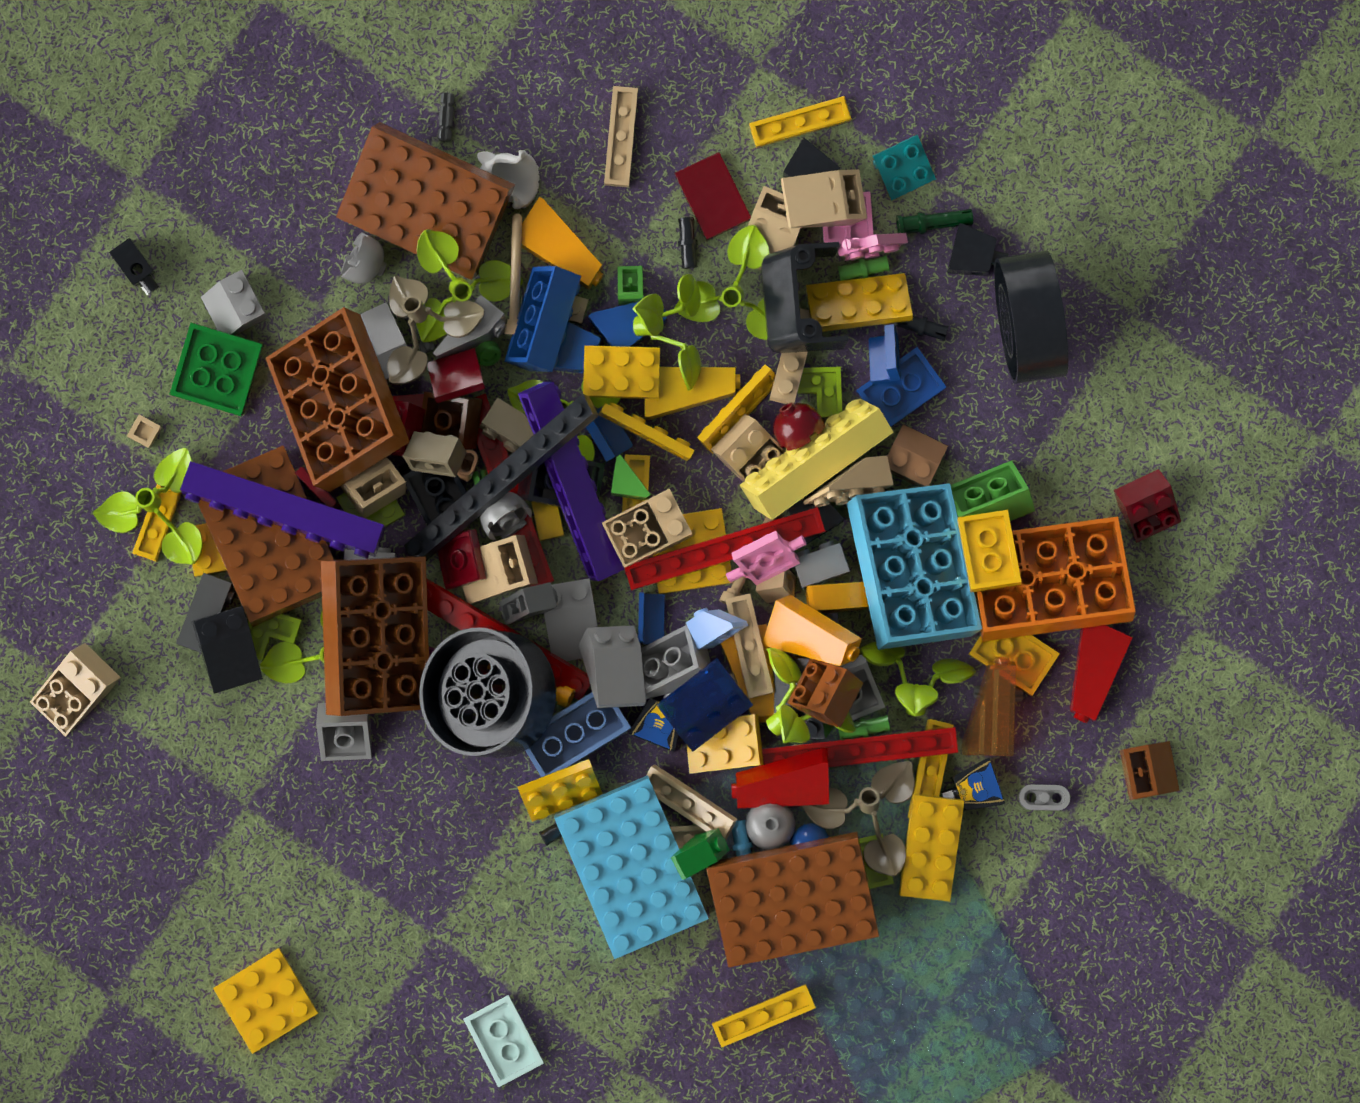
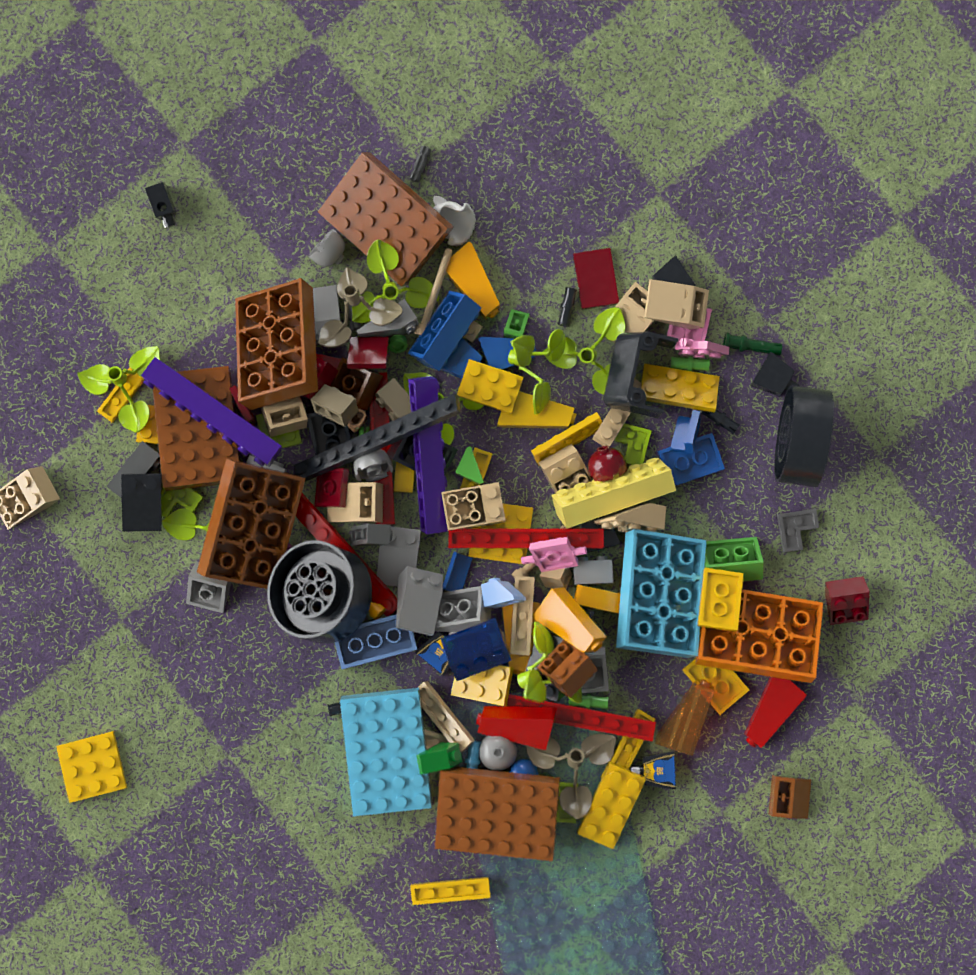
camera: 20 degrees right, 0 degrees up
(144, 431) = (132, 326): tan plate -> none
(216, 369) = (198, 296): green plate -> none
(233, 304) = (225, 254): light grey slope -> none
(503, 1041) = (254, 850): light aqua plate -> none
(560, 790) = (351, 679): yellow plate -> none
(608, 437) = (467, 428): blue panel -> none
(621, 136) = (542, 215): tan plate -> none
(655, 435) = (501, 440): yellow plate -> none
(800, 122) = (676, 243): yellow tile -> none
(904, 167) = (742, 299): teal hinge -> none
(915, 456) = (686, 513): medium nougat slope -> none
(918, 697) = (633, 691): lime plant -> none
(1044, 797) = (705, 793): light grey plate -> none
(1051, 431) = (790, 526): none -> flat silver plate

